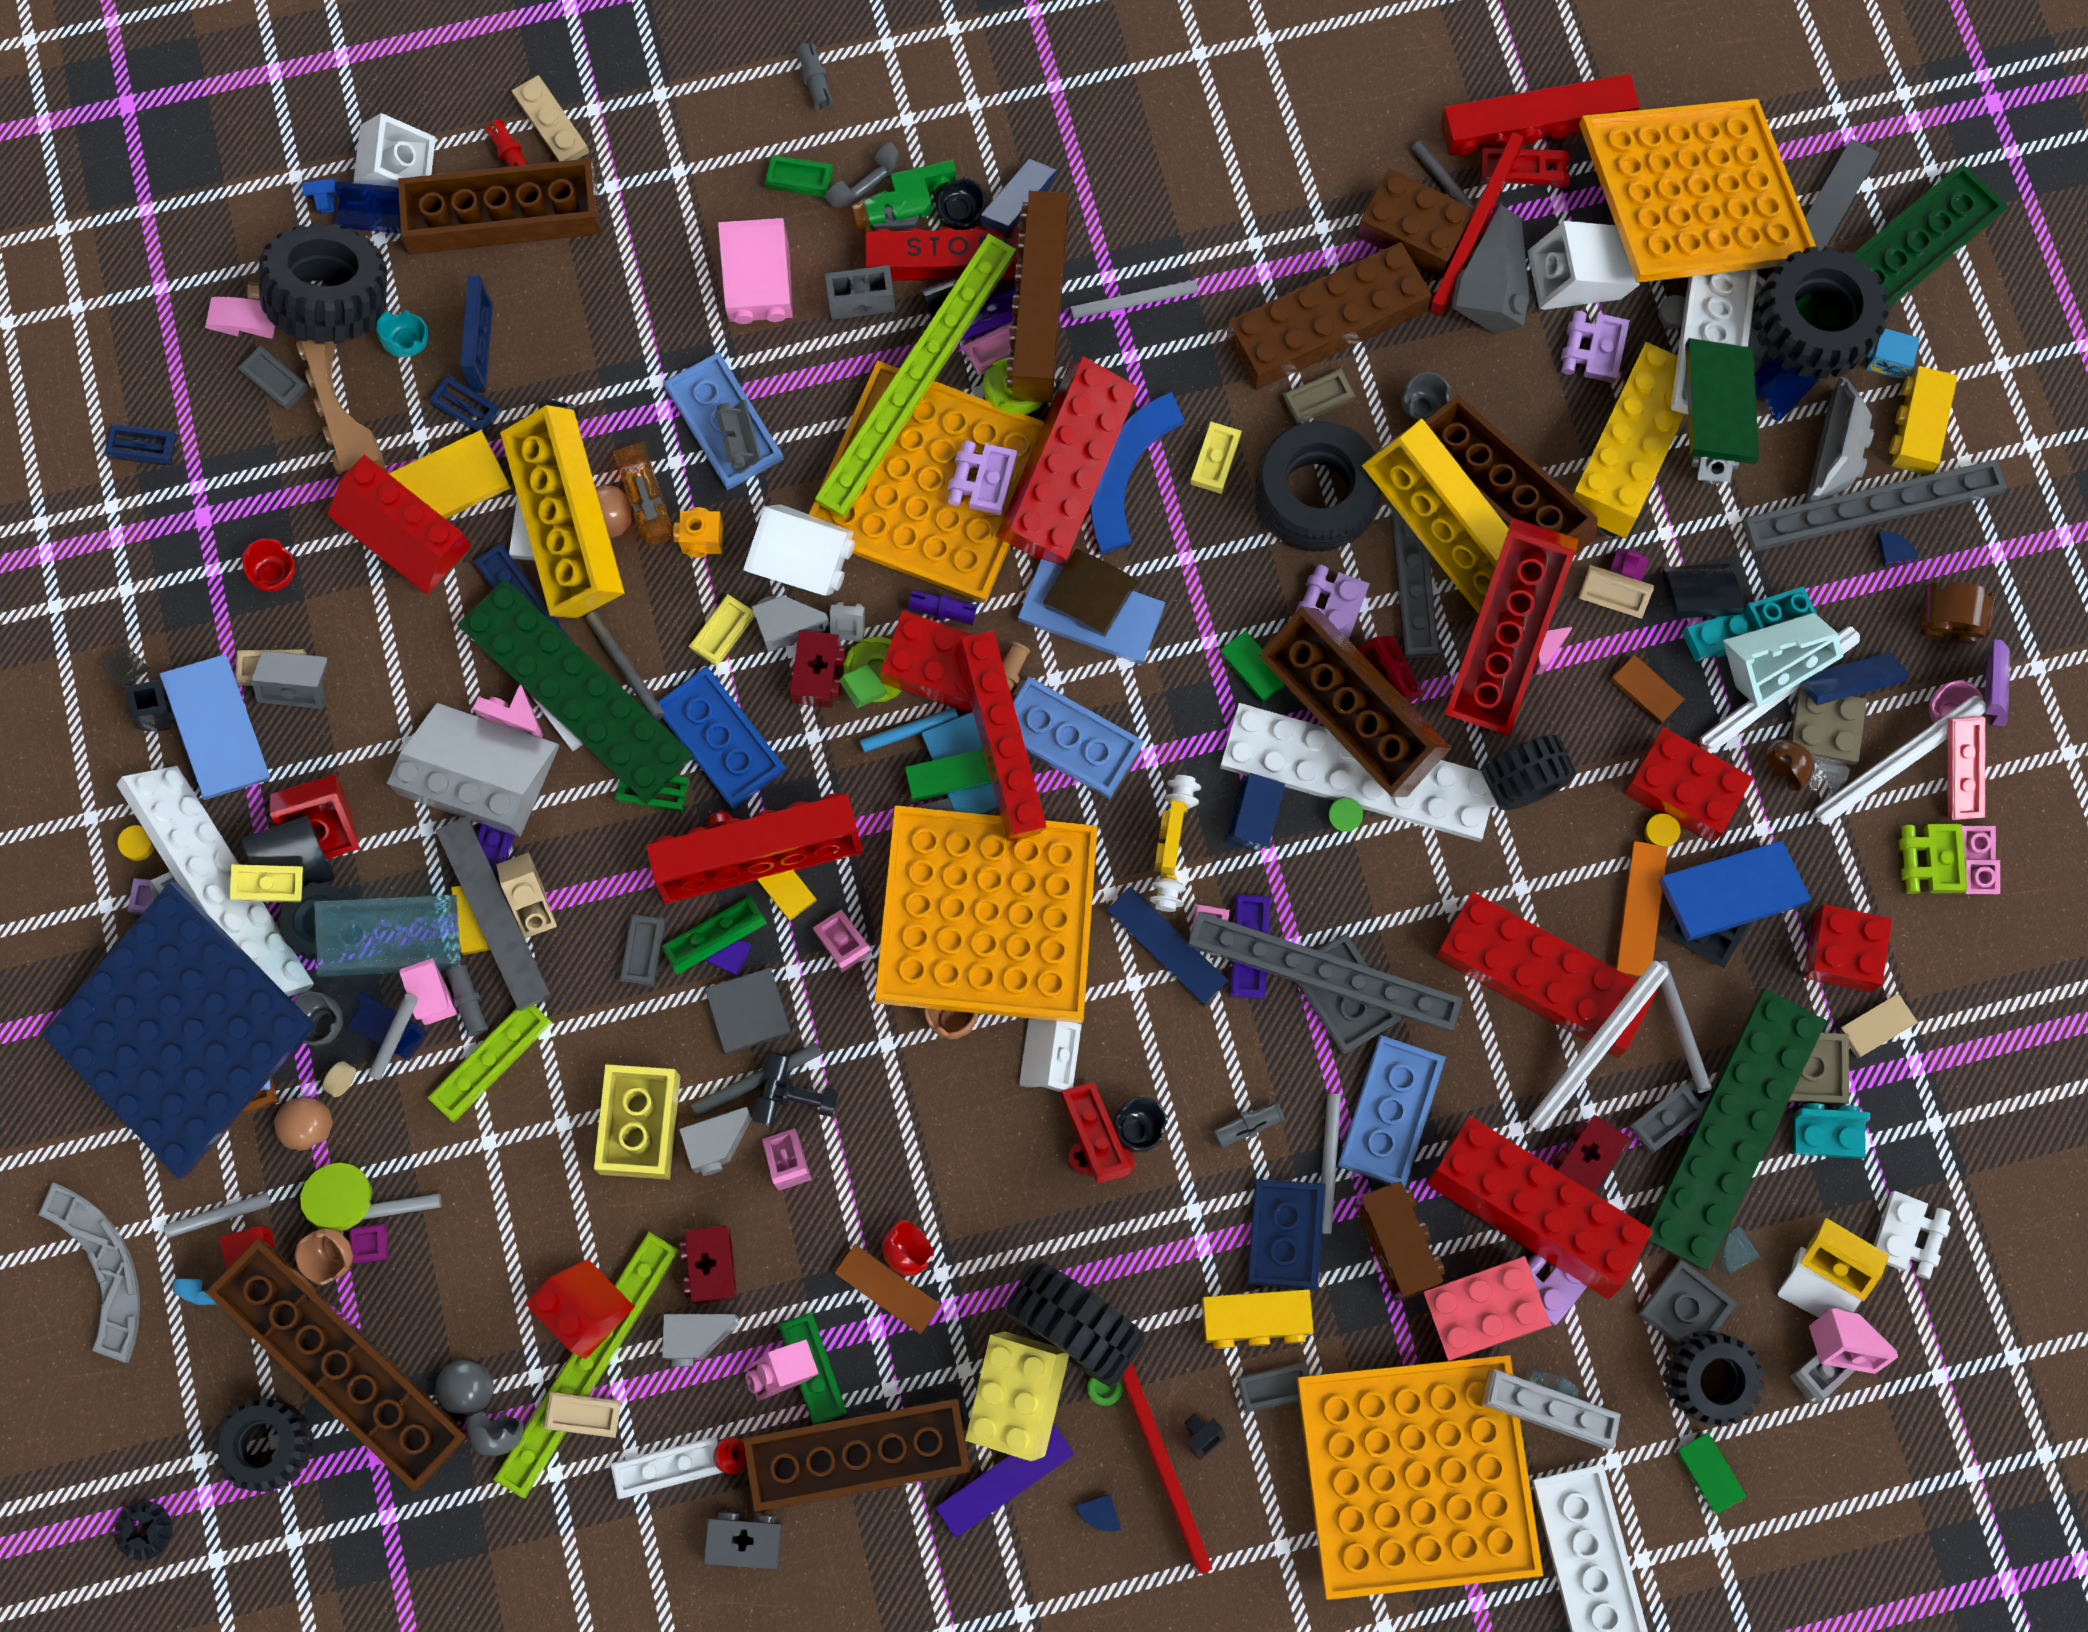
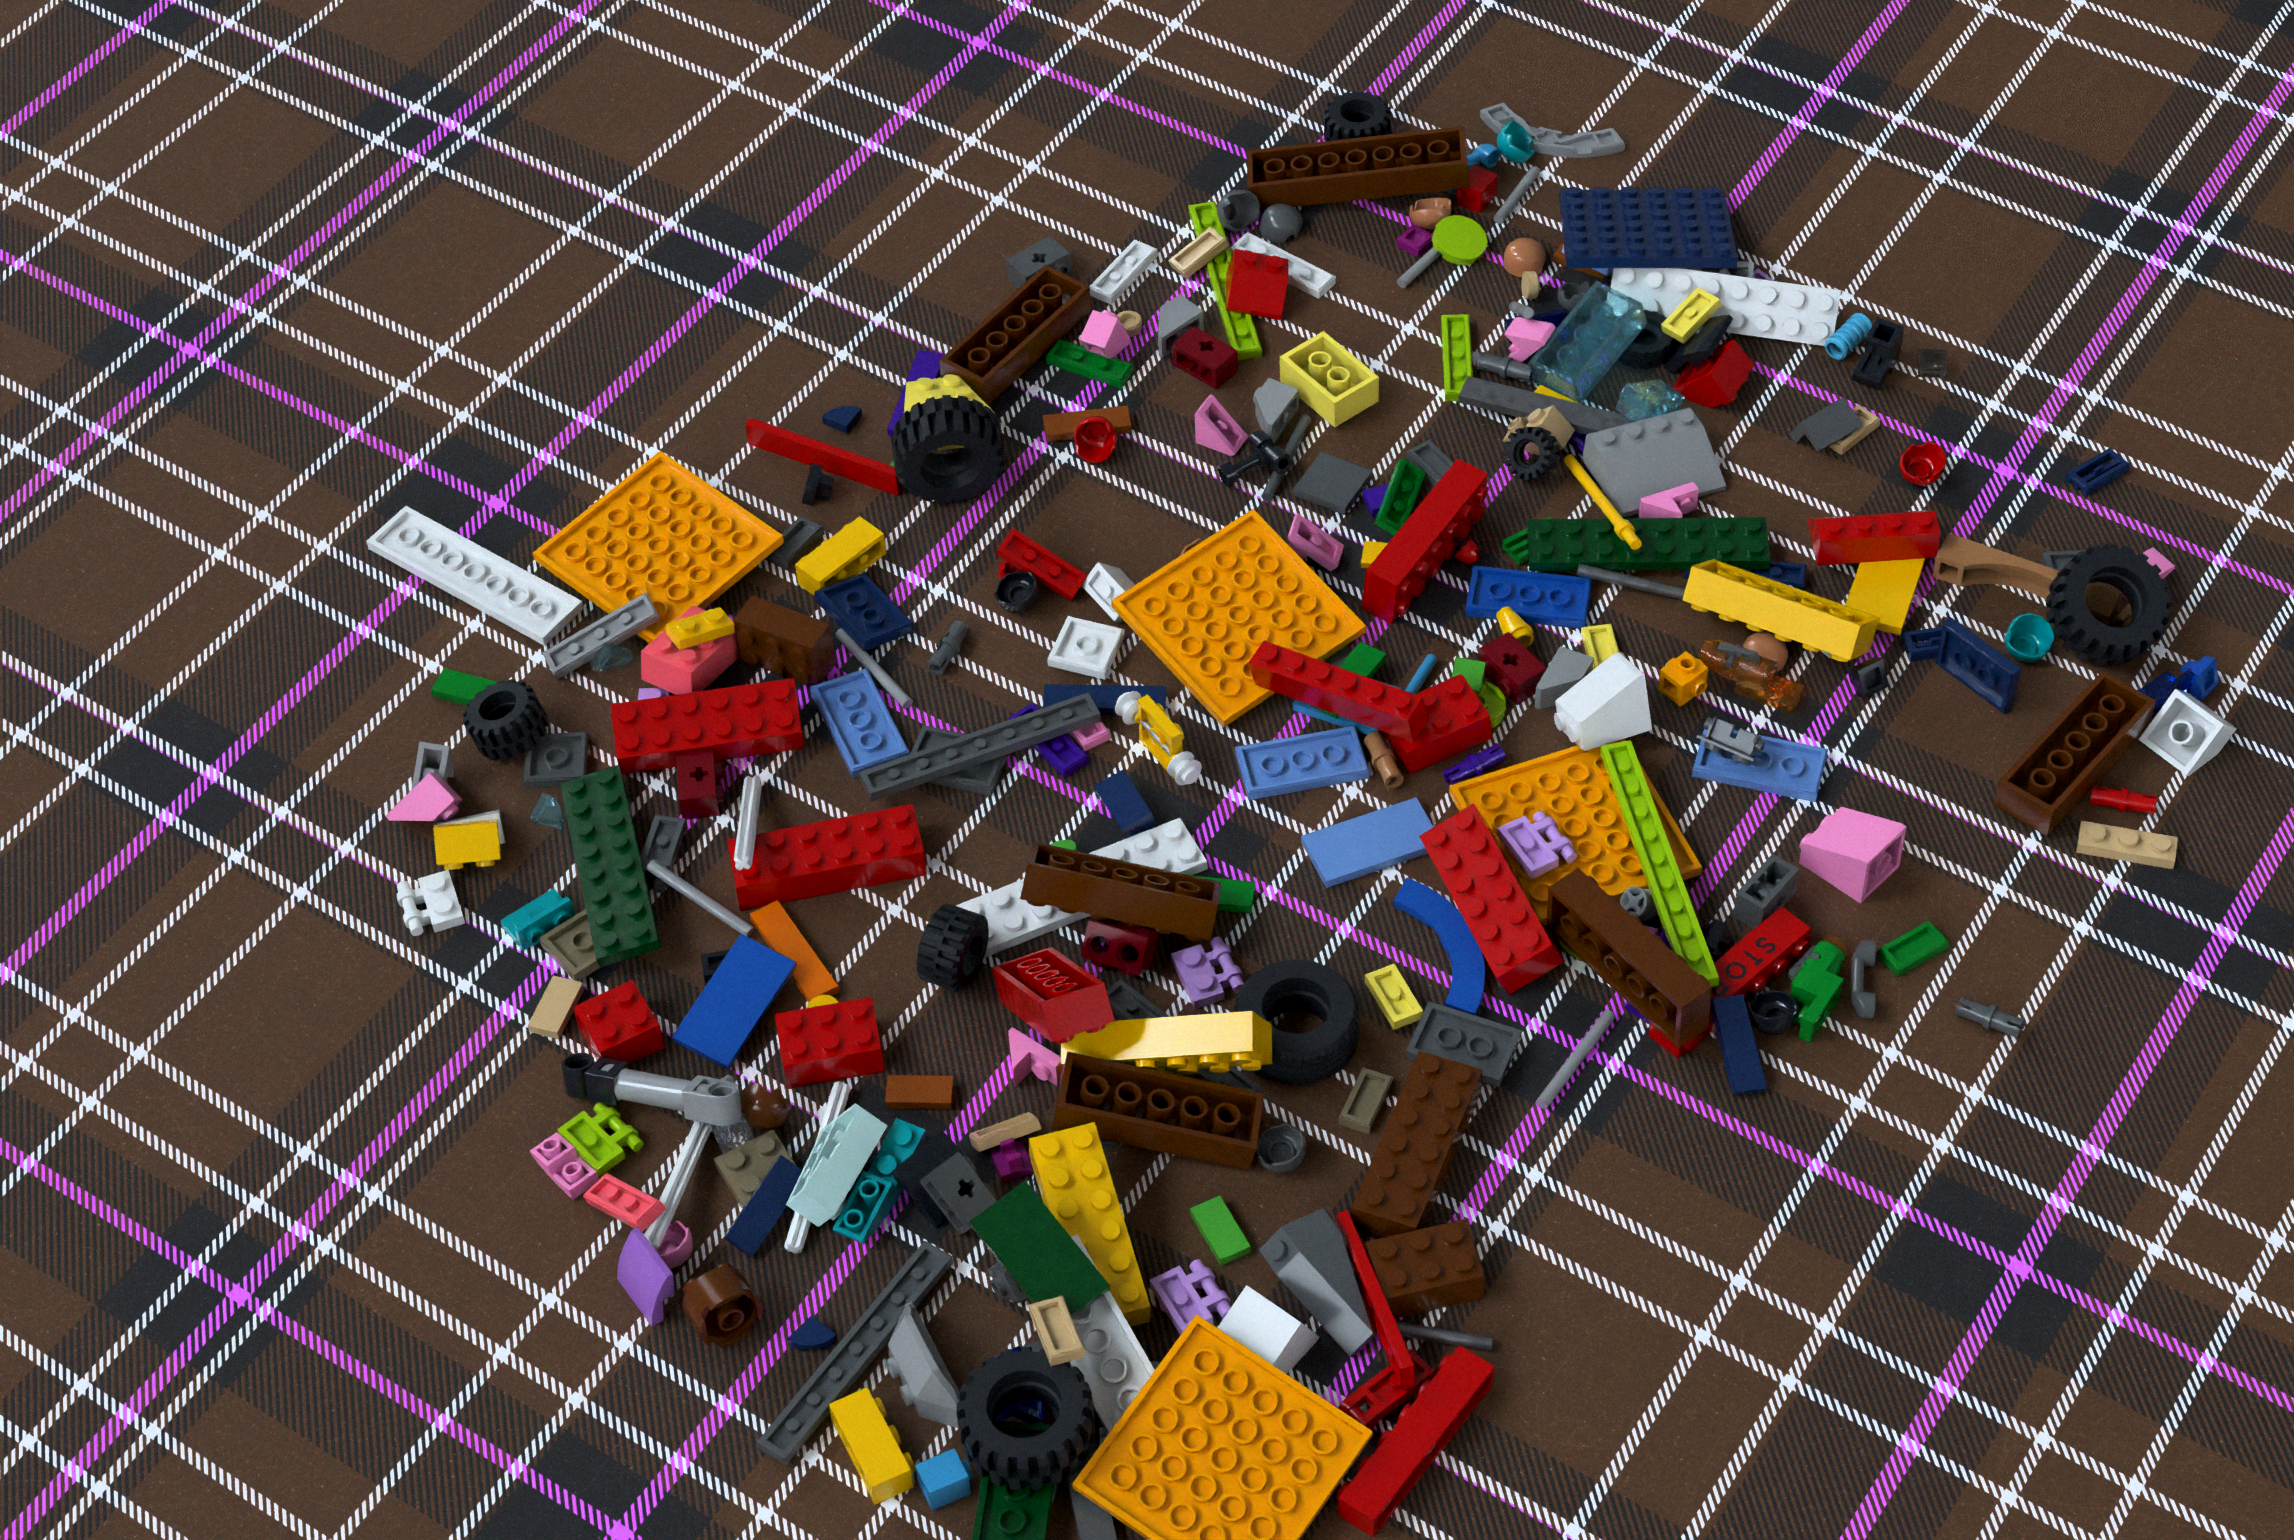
camera: 140 degrees right, 25 degrees down
(153, 758) = (1848, 336): none -> medium azure piece
(154, 1274) = (1515, 142): none -> teal hair
(158, 1533) = (1386, 70): black gear -> none
(214, 727) = (1834, 371): medium blue tile -> none
(407, 829) = (1648, 400): none -> clear light blue brick
(516, 1331) = (1301, 273): none -> white tile
(552, 869) = (1516, 453): none -> black tyre
(593, 697) = (1622, 527): none -> yellow bar
(723, 1459) = (1098, 292): red plate -> none
(729, 1389) = (1131, 321): none -> tan tile
(772, 705) = (1515, 625): none -> yellow cone
(847, 621) = (1529, 706): light grey tile -> none
(959, 369) = (1632, 902): none -> light grey wheel
(1090, 592) = (1382, 838): dark brown slope -> none
(1133, 1014) = (1086, 647): none -> white plate
(1205, 374) = (1466, 1041): none -> dark grey plate
(1477, 1302) = (699, 628): none -> yellow plate
(1524, 384) = (1220, 1230): none -> bright green tile
(1702, 555) = (945, 1183): none -> dark grey brick
(1761, 329) = (1056, 1330): none -> tan tile
(1871, 846) = (612, 1081): none -> light grey piece

